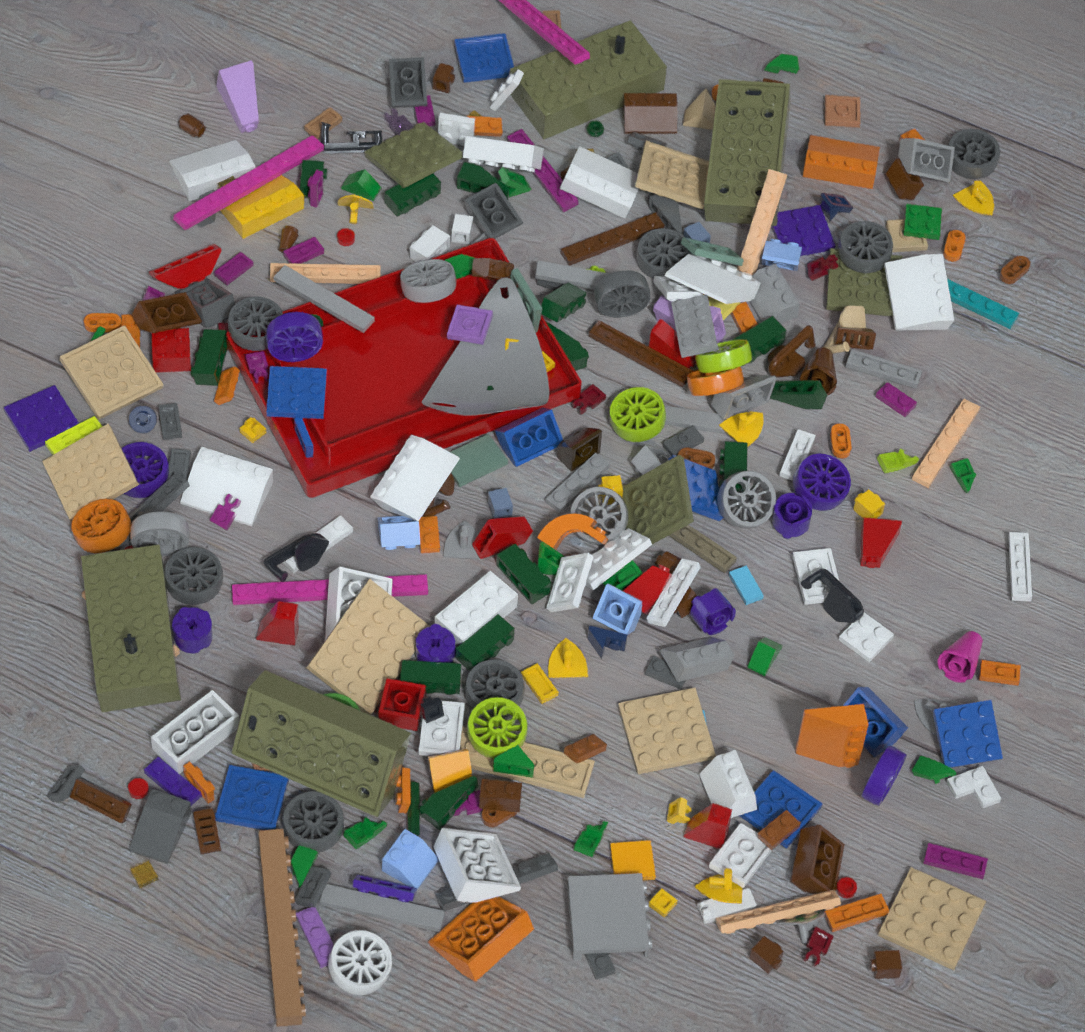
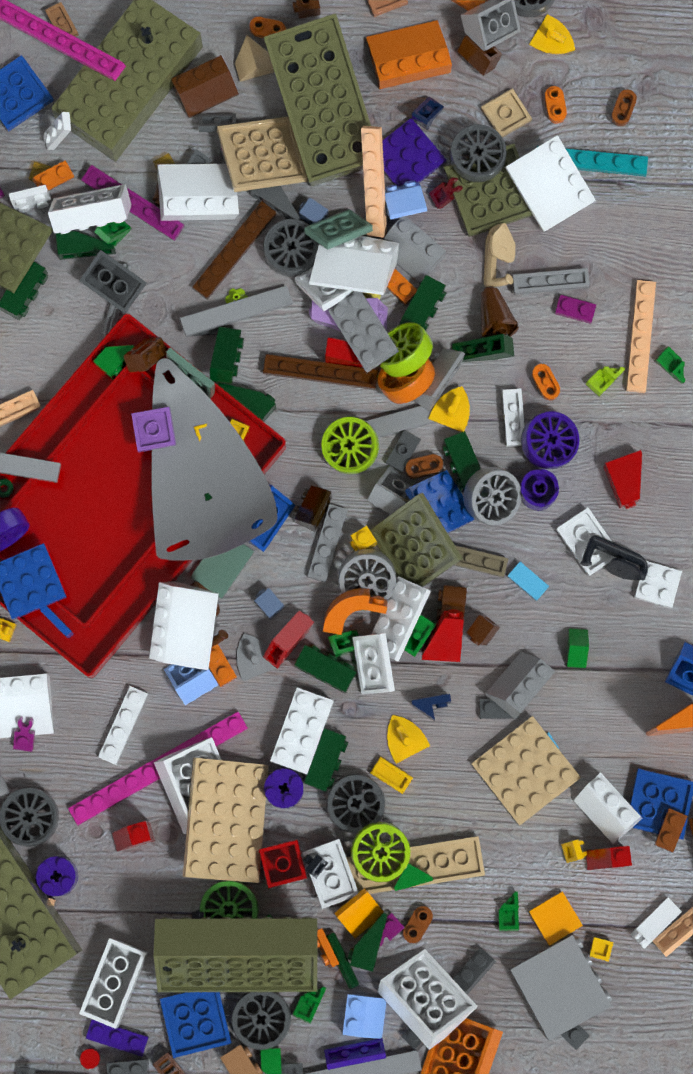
camera: 20 degrees left, 25 degrees up
(195, 777) = (150, 1031): orange plate -> none
(307, 554) = (119, 751): black piece -> none
(428, 280) = (90, 396): light grey piece -> none
(430, 245) = (68, 345): white brick -> none
(436, 676) = (294, 820): dark green brick -> none
(462, 229) = (89, 309): white brick -> none
(500, 795) = (415, 918): reddish brown brick -> none
(585, 748) = (464, 827): dark orange plate -> none
(590, 397) = (297, 444): dark red plate -> none
(595, 129) = (160, 123): dark green plate -> none
(618, 610) = (430, 676): light blue slope -> none
(622, 294) = (277, 320): dark grey piece -> none
(673, 592) = (473, 633): white plate -> none
(712, 612) = (514, 631): dark purple brick -> none
(721, 888) = (645, 907): yellow shield -> none
(742, 854) = (648, 871): white plate -> none
(785, 361) = (456, 314): reddish brown piece -> none
(866, 341) = (518, 259): reddish brown slope -> none
(868, 505) = (602, 443): yellow brick -> none
(922, 221) = (516, 93): green plate -> none

